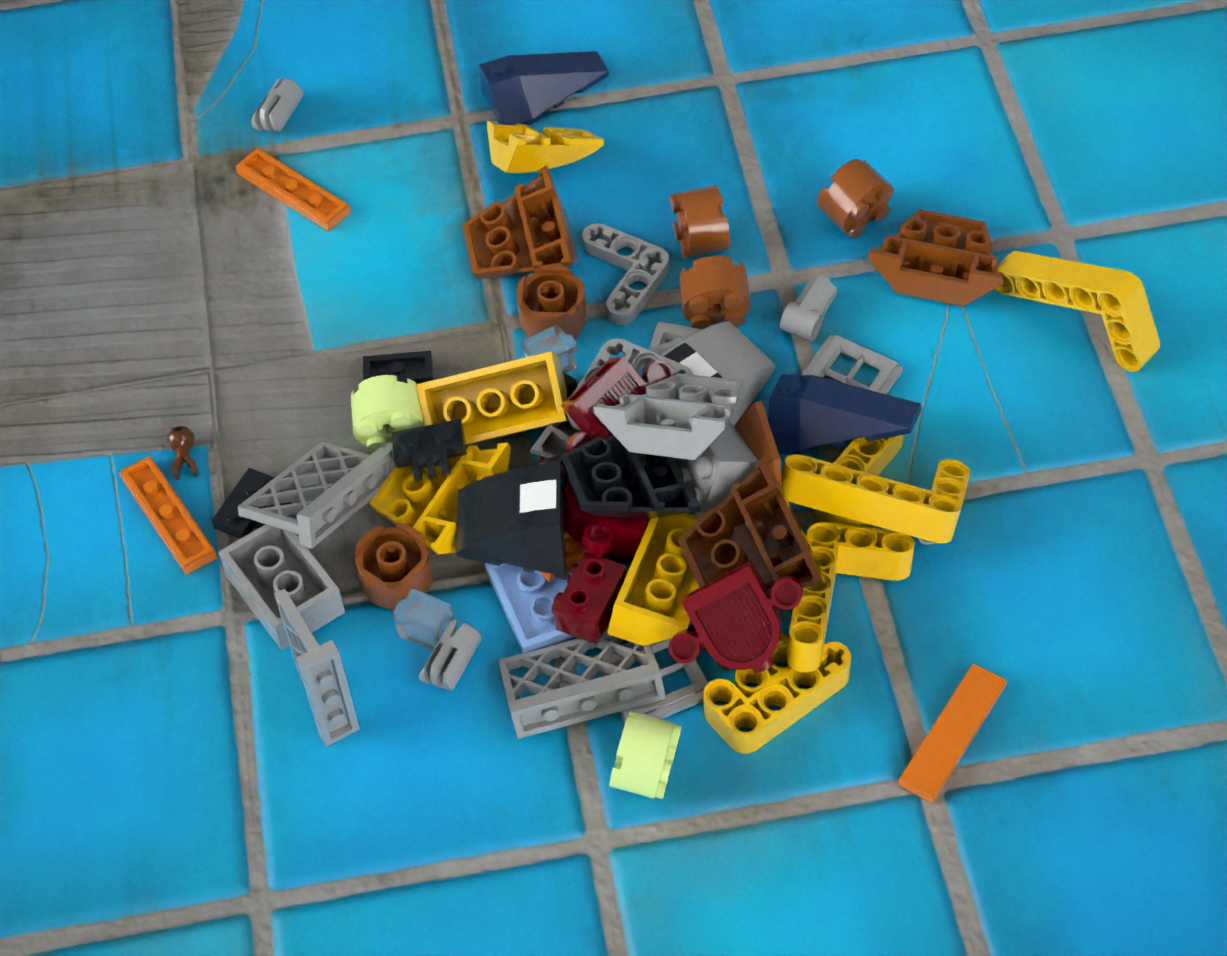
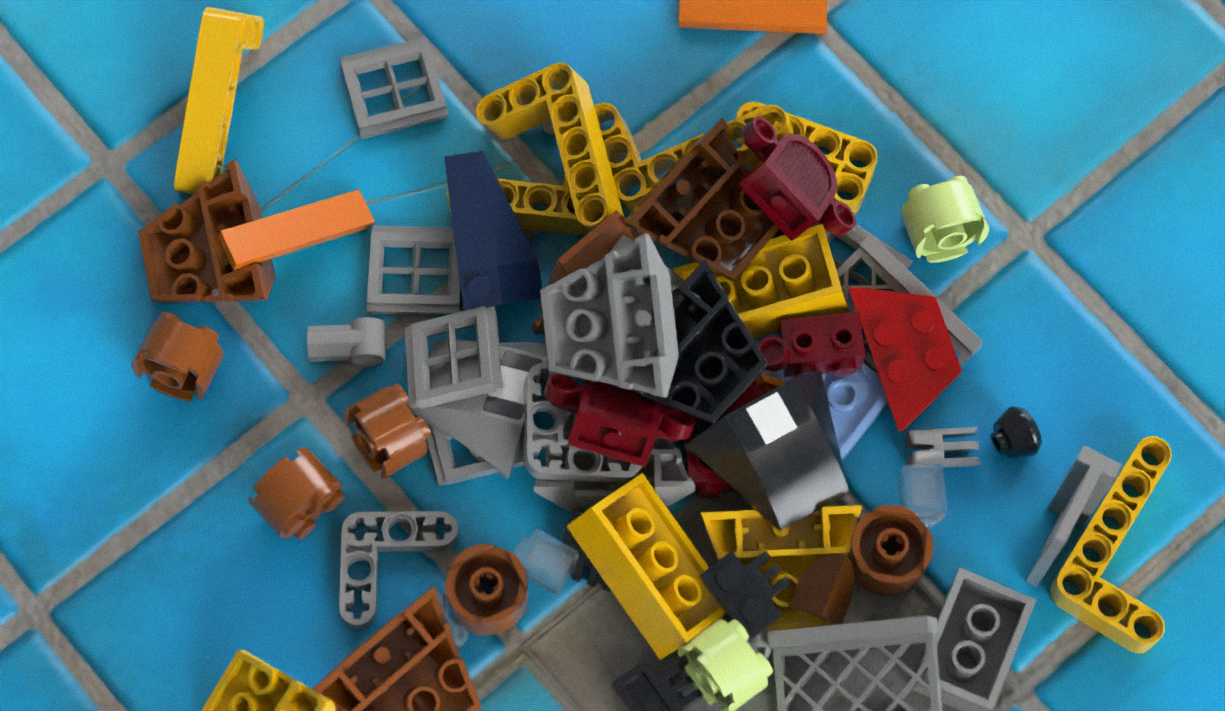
camera: 125 degrees left, 15 degrees up
(291, 729) = (1106, 542): none -> yellow beam
(389, 496) = (826, 588): none -> reddish brown brick
(423, 715) = (1016, 433): none -> black cone
(545, 656) = (907, 348): none -> red wing
(735, 368) = (487, 351): none -> light grey piece
(922, 306) = (296, 229): none -> orange tile
(1057, 439) = (401, 117): none -> light grey piece

